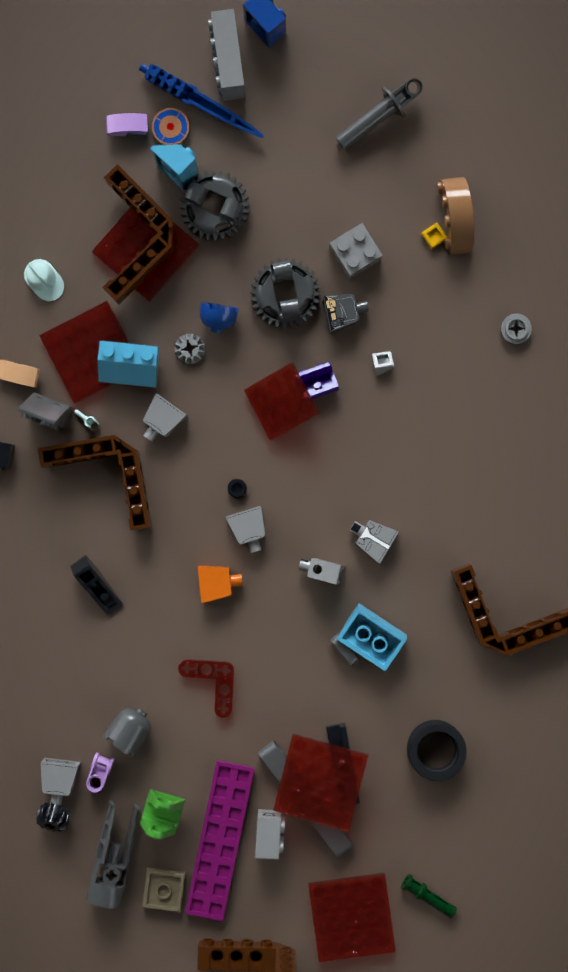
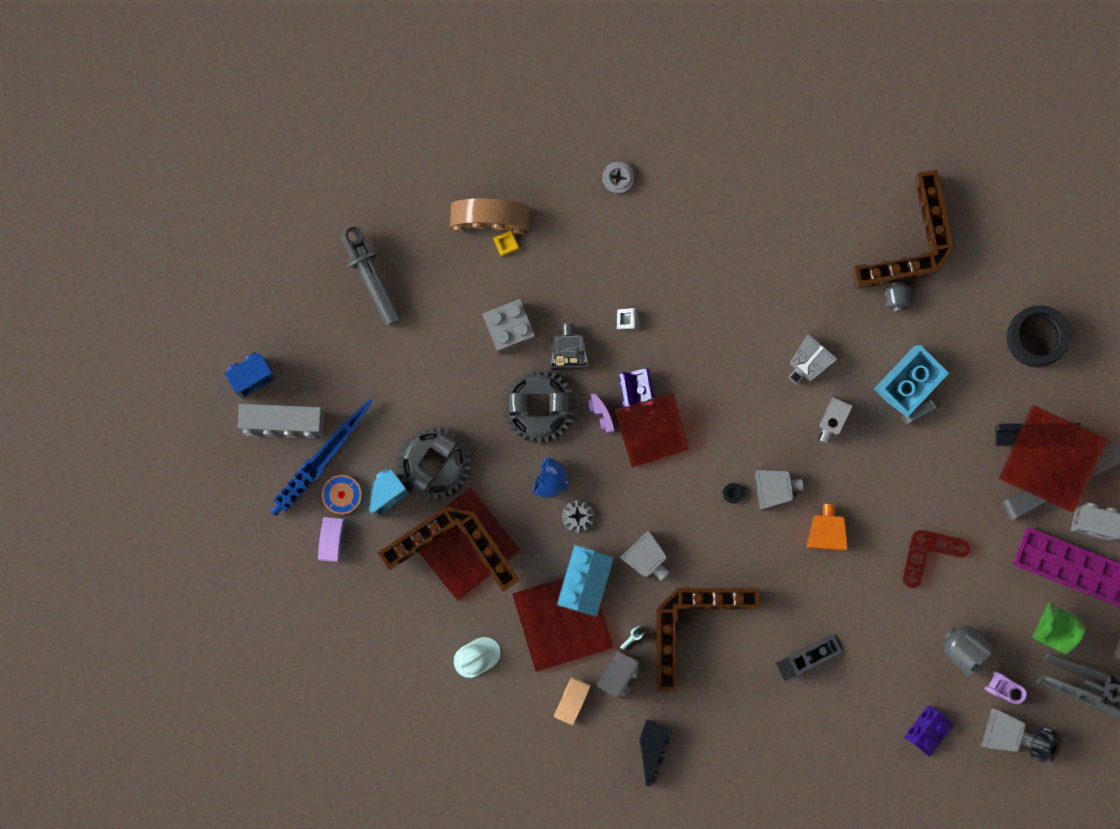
camera: 75 degrees left, 5 degrees down
(49, 707) = (929, 730): none -> dark purple bracket
(293, 348) = (598, 407): none -> lavender slope
(450, 611) = (898, 296): none -> dark grey head

